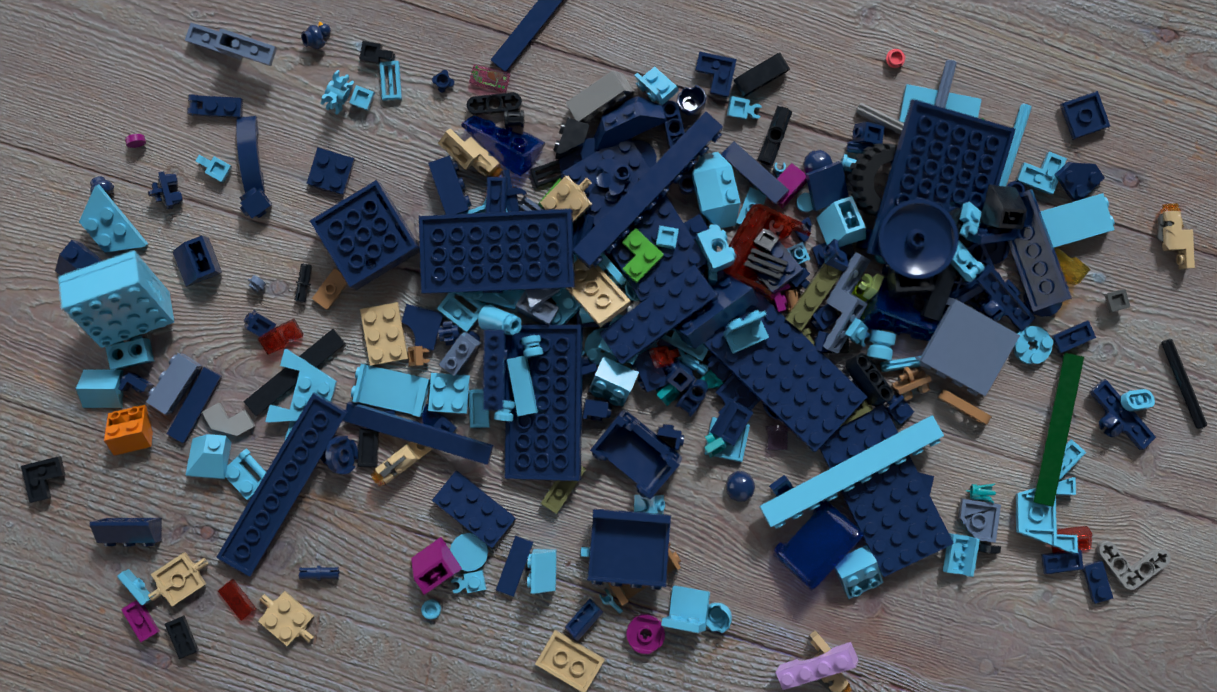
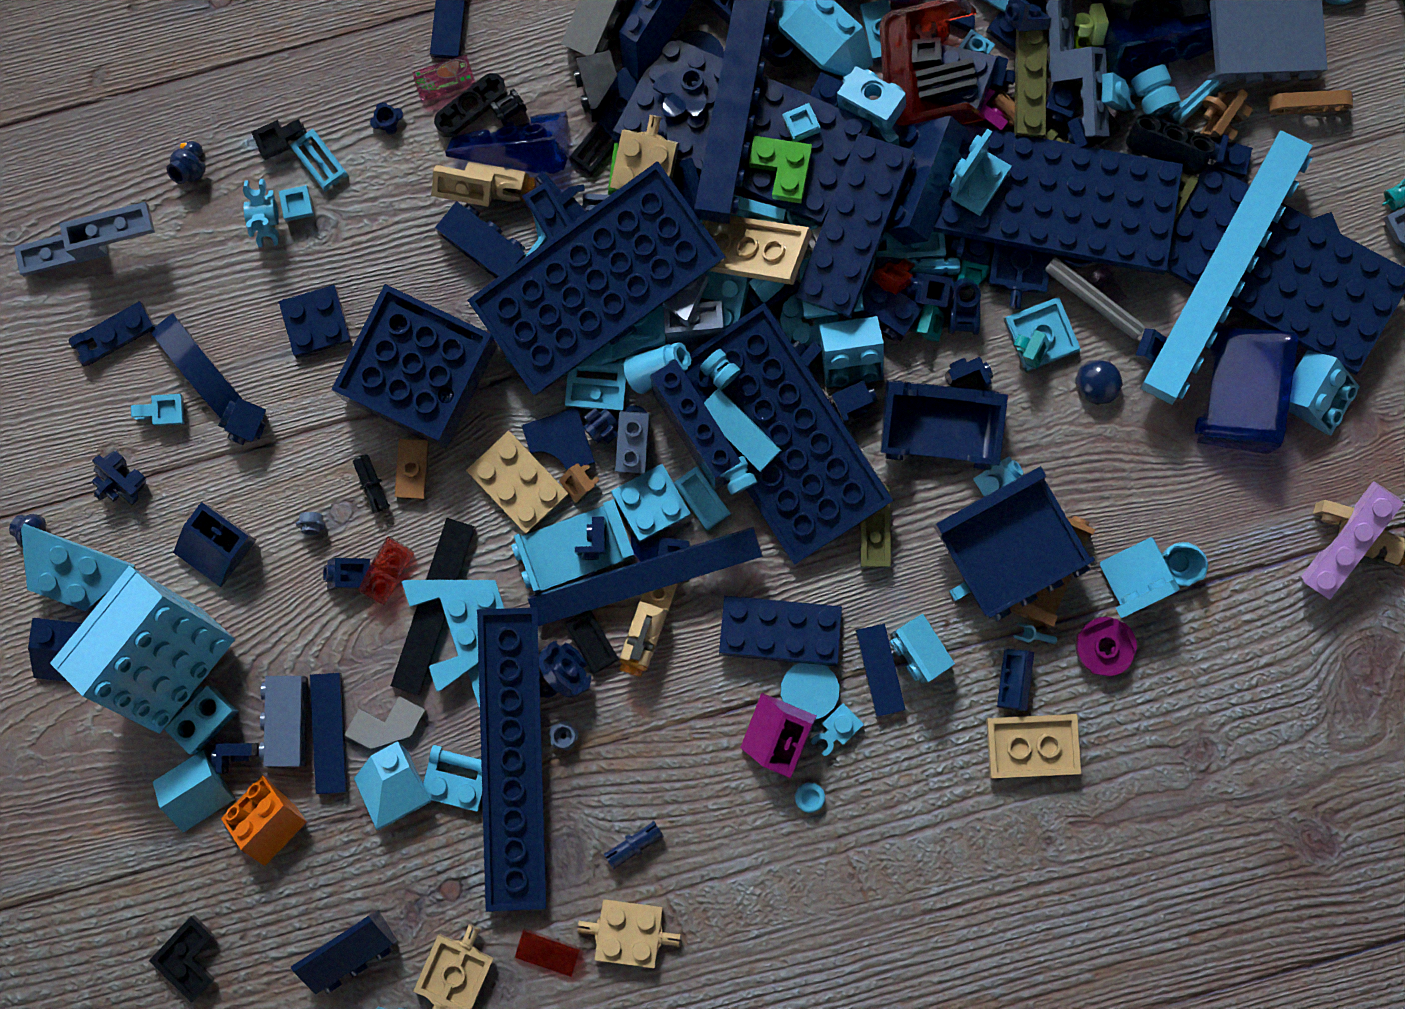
camera: 30 degrees left, 5 degrees down
(135, 140) = (35, 441): magenta tile -> none
(319, 484) = (571, 736): none -> sand blue plate
(407, 392) = (597, 535): none -> dark blue bracket
(731, 422) = (1035, 304): dark blue plate -> none
(768, 439) = (1094, 298): none -> light grey axle

